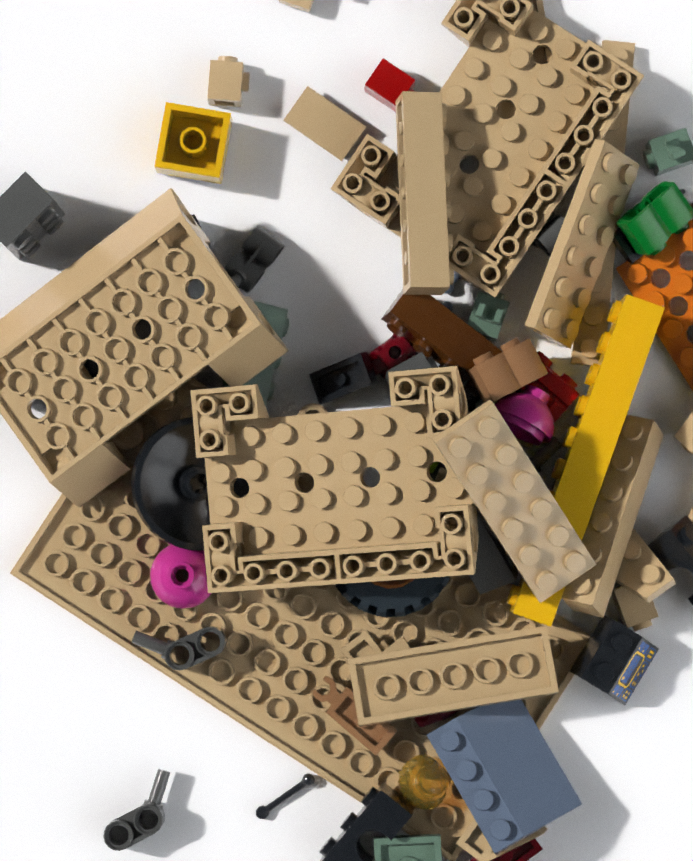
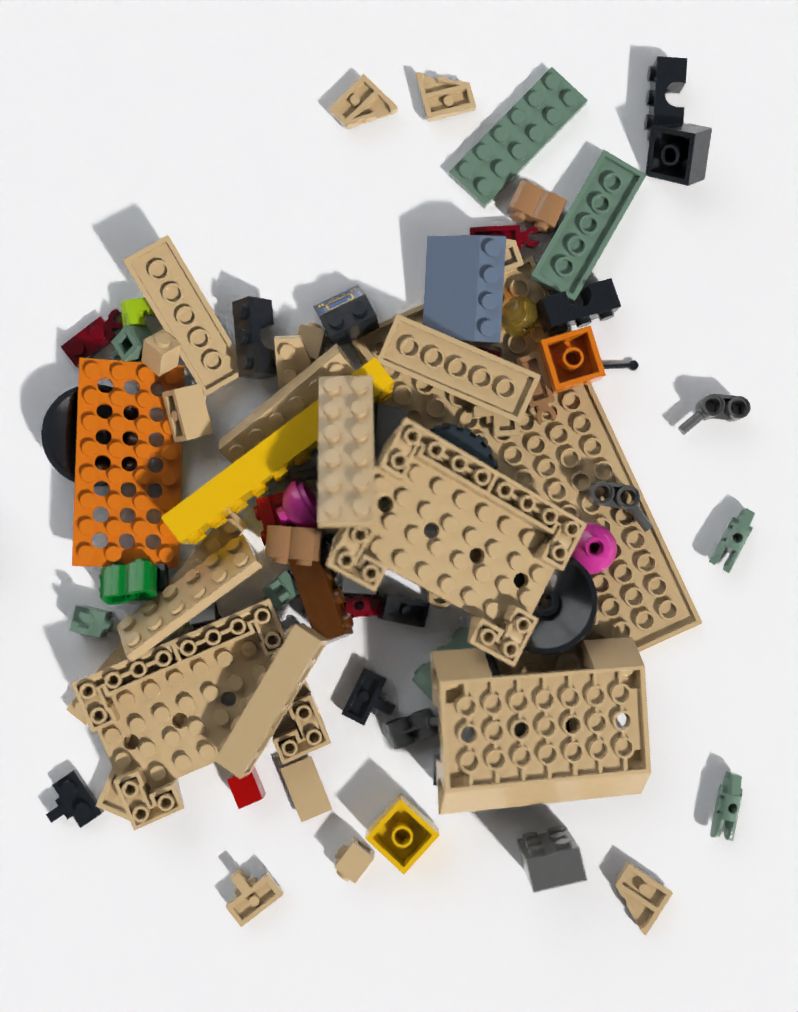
camera: 145 degrees left, 0 degrees up
(32, 703) = (740, 529): none -> sand green hinge
(321, 260) = (367, 697): none -> black hinge
(336, 767) = (571, 359): none -> orange brick

